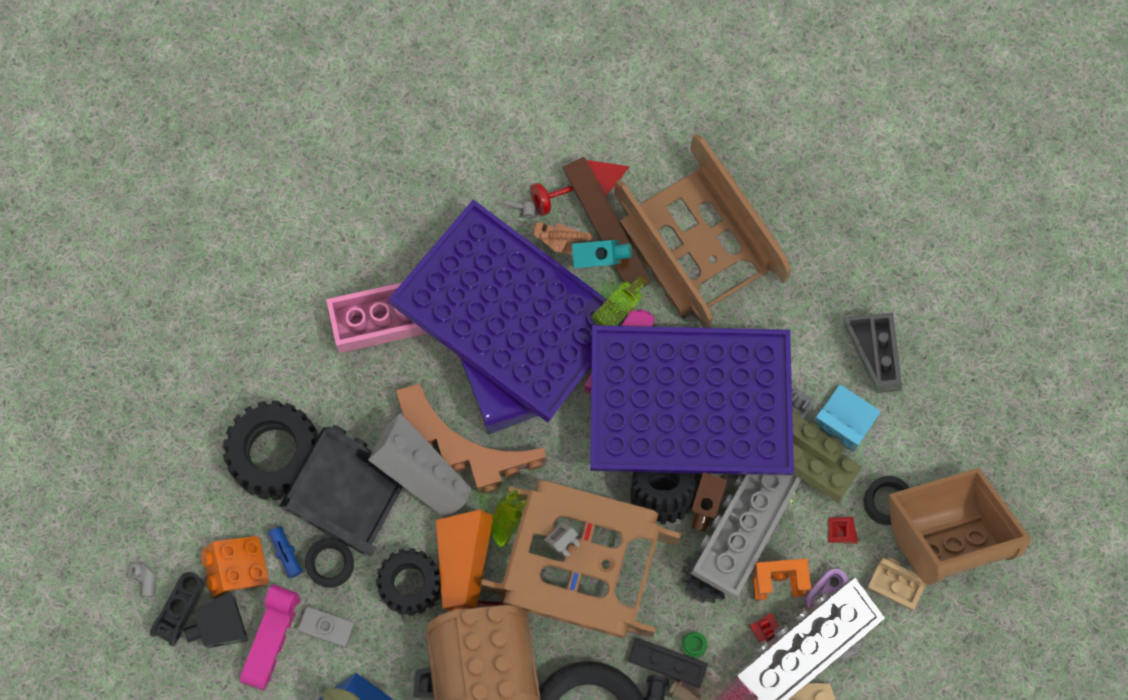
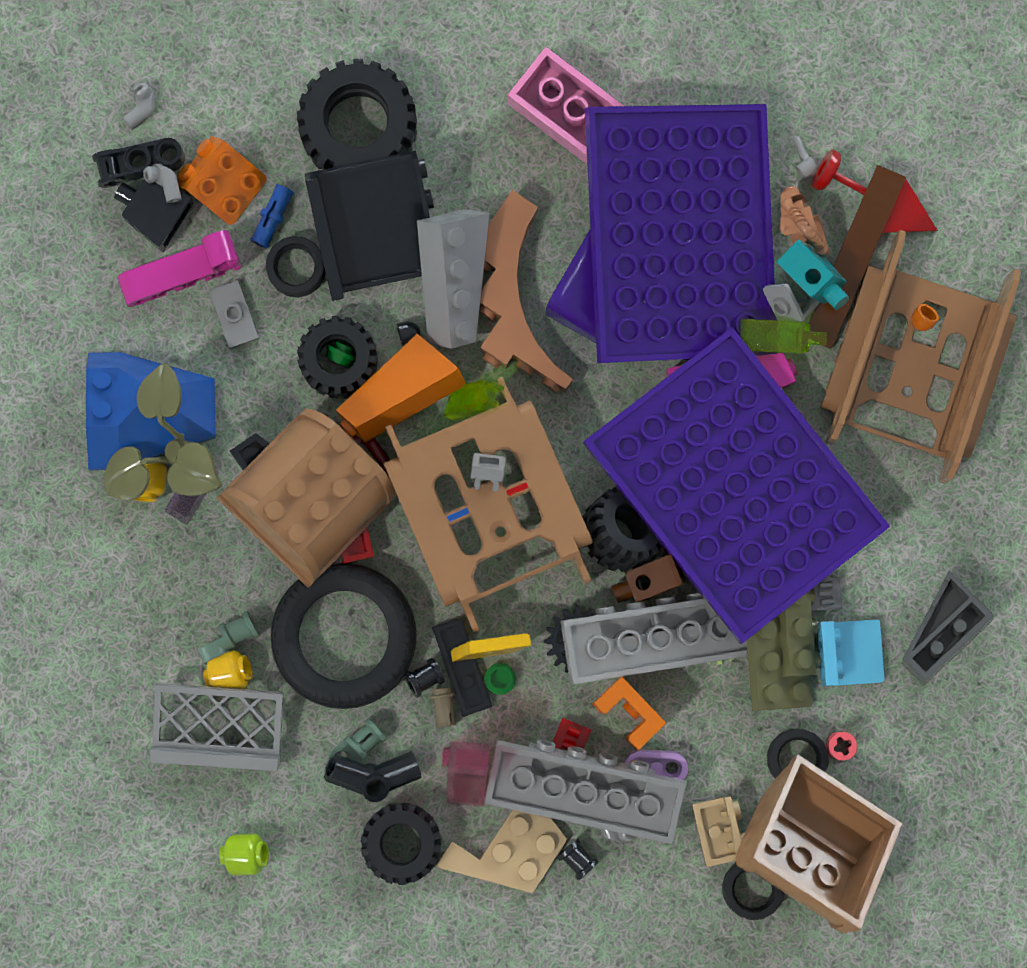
camera: 50 degrees right, 10 degrees up
(204, 598) = (165, 178): none -> light grey arm
(408, 579) = (340, 354): none -> green plate
(428, 527) = (407, 331): none -> black hinge
(543, 665) = (359, 549): none -> red tile
(602, 284) = (785, 304): none -> light grey bracket
(671, 631) = (490, 647): none -> yellow tile
(677, 213) = (924, 317): none -> orange hinge
(842, 530) = (732, 738): red slope -> none
(847, 687) = (577, 859): none -> black bush
(908, 465) = (850, 749): none -> coral bush
(969, 595) = (743, 911): none -> black tyre

